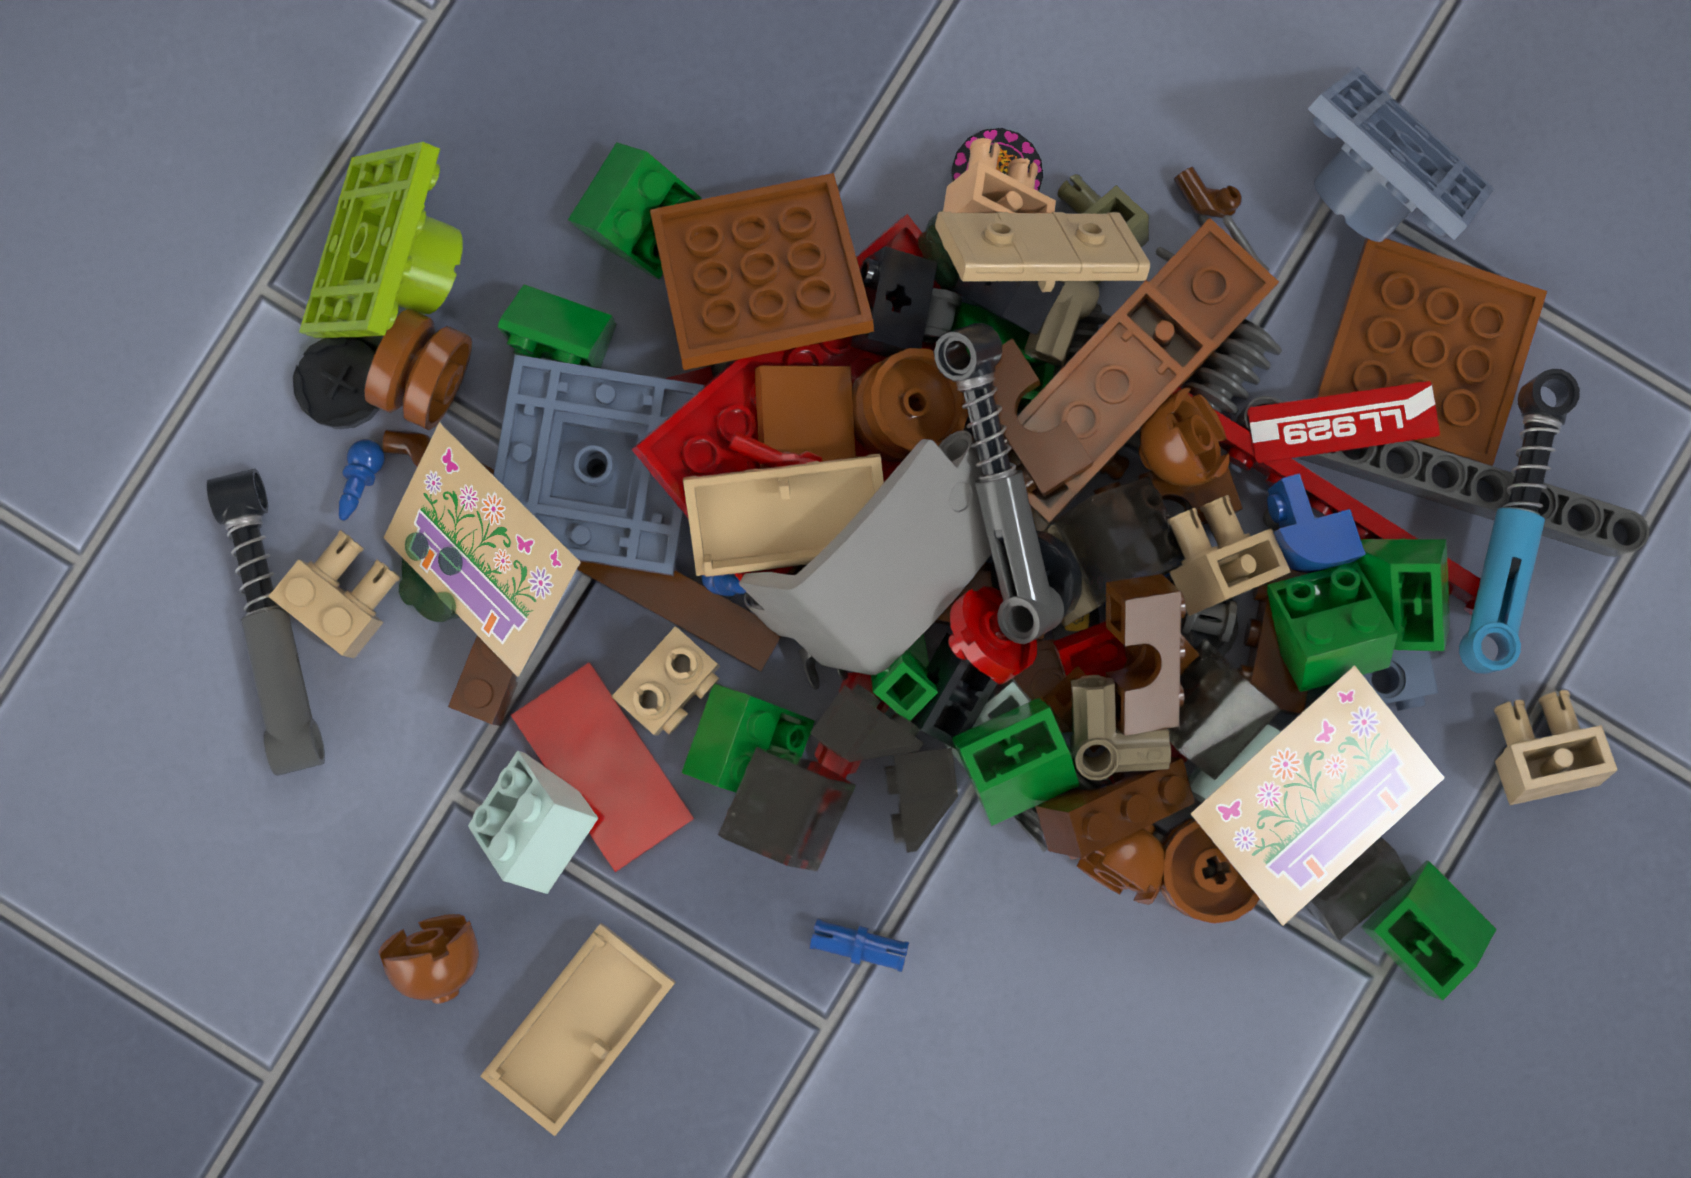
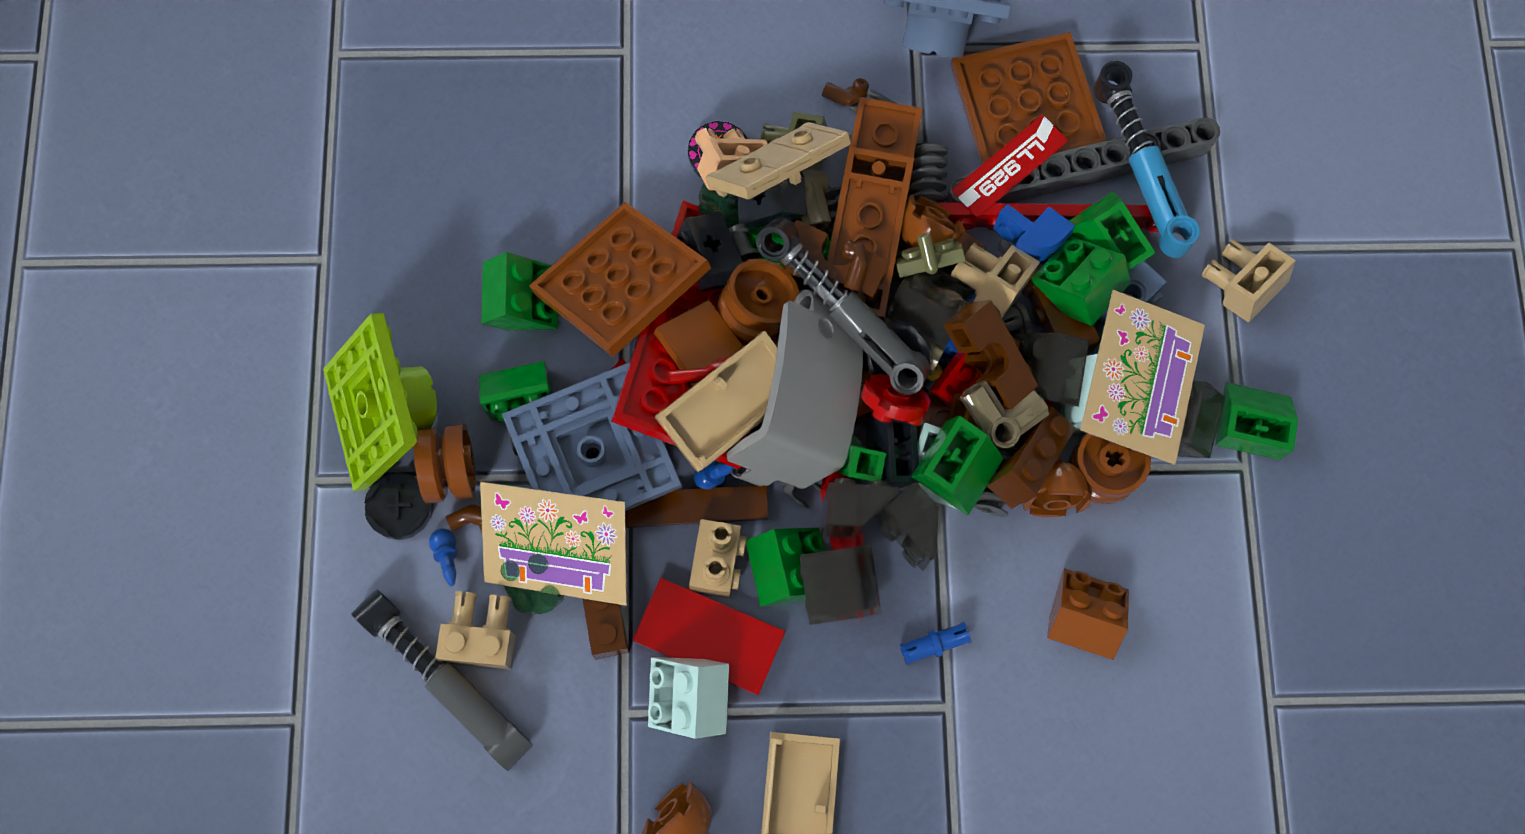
camera: 35 degrees left, 10 degrees down
(1047, 445) = (858, 264): none -> reddish brown arm
(1064, 1028) = (1089, 614): none -> dark orange slope
(1142, 481) = (927, 258): none -> olive plate

